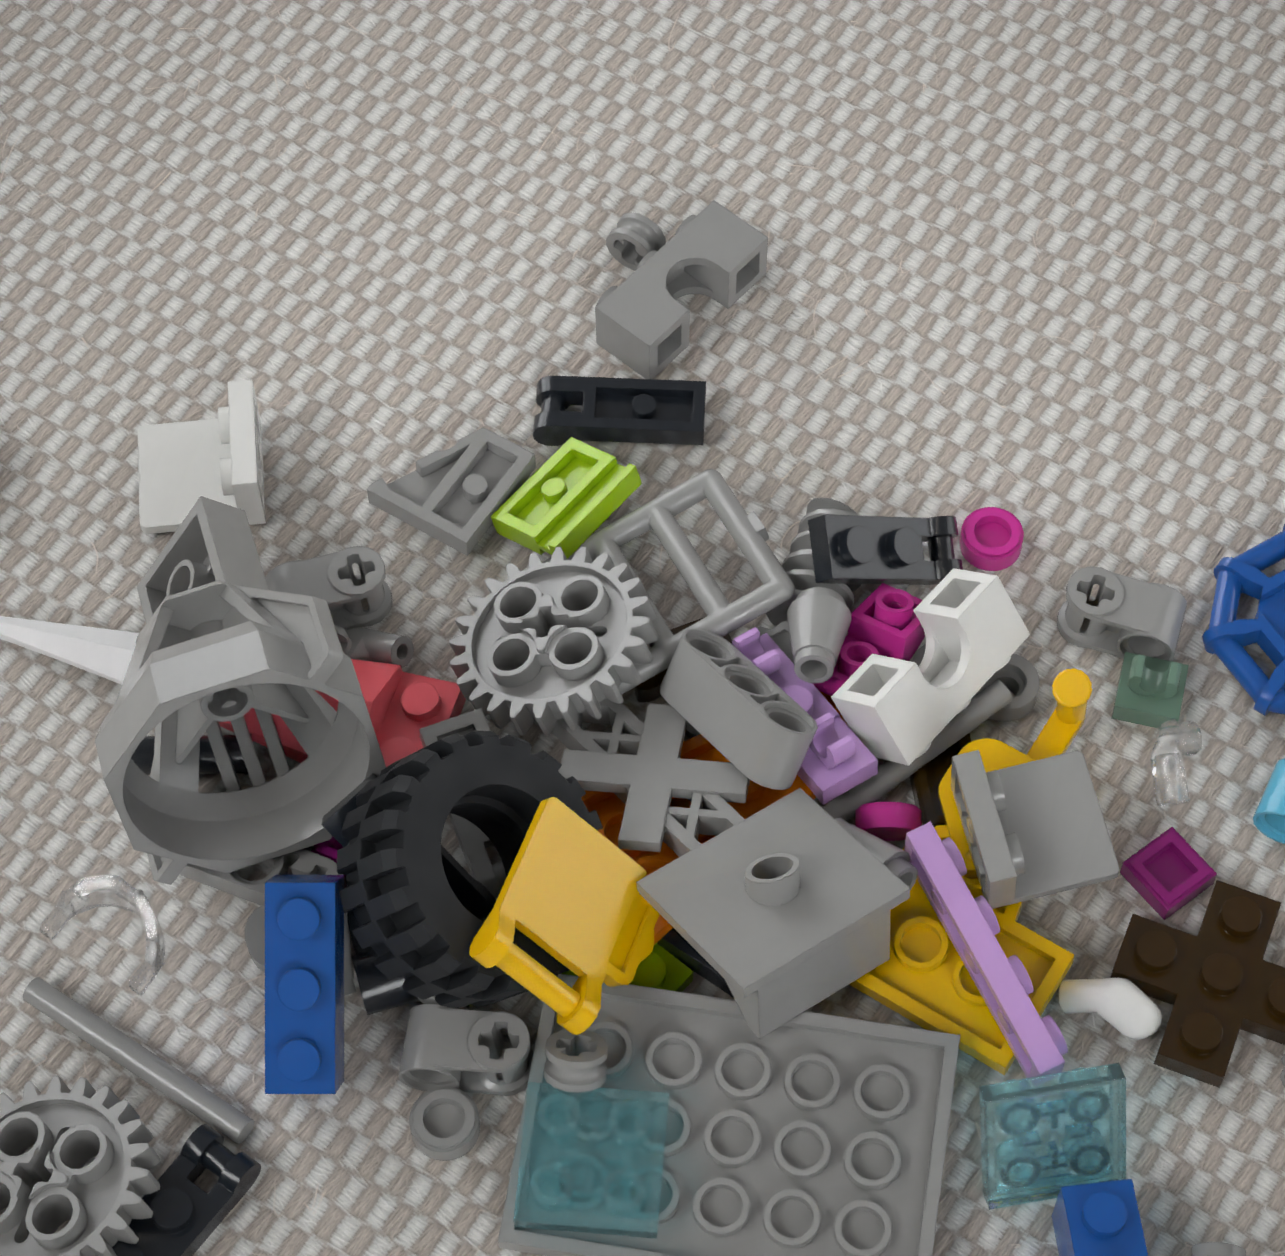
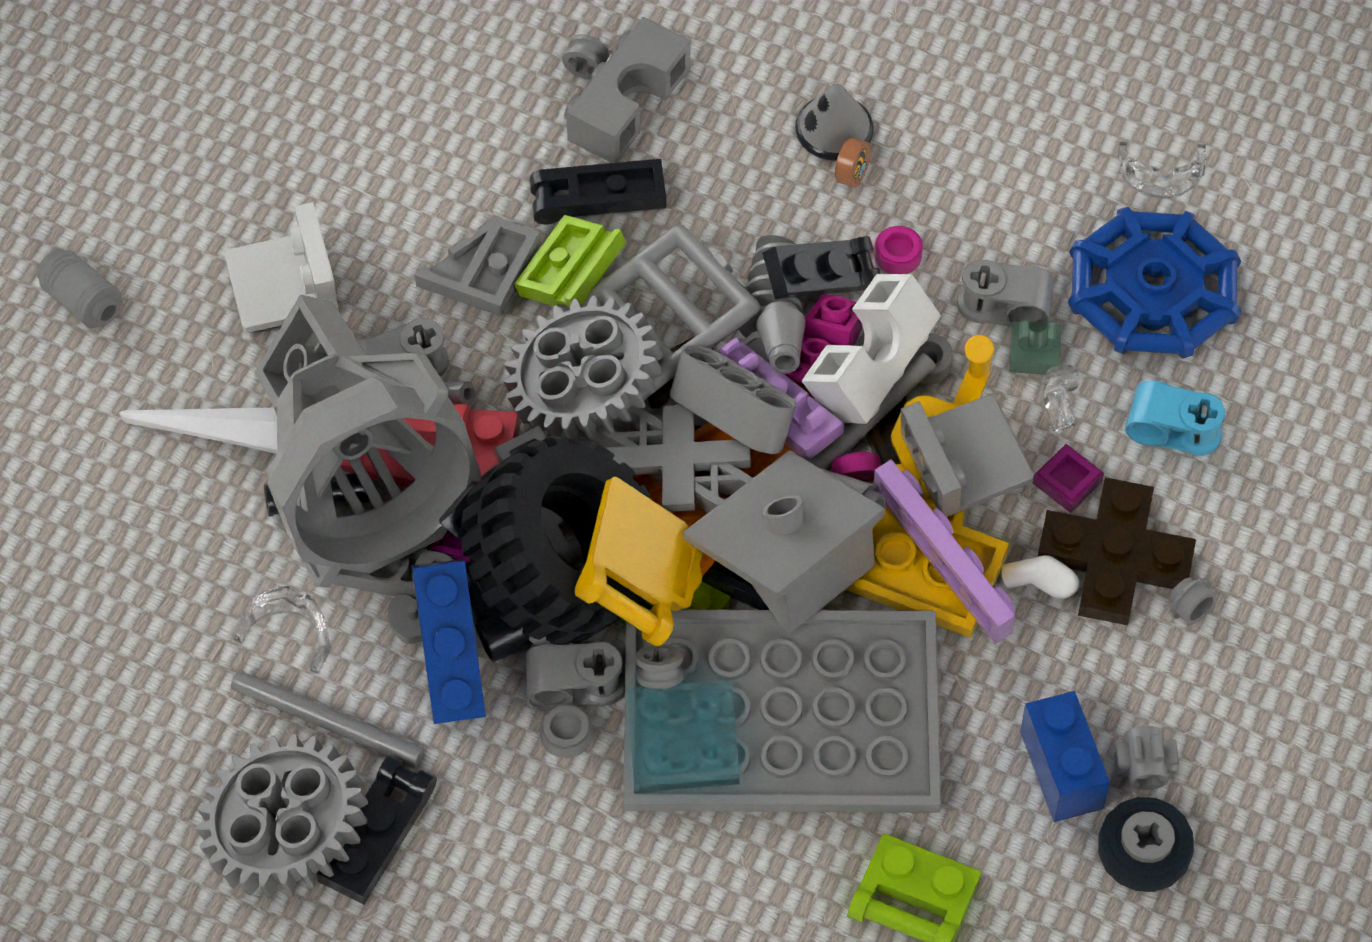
camera: 10 degrees left, 0 degrees up
(935, 368) = (830, 121): none -> light grey hat
(950, 417) = (852, 162): none -> nougat tile
(1052, 1133) = (1012, 668): clear light blue tile -> none

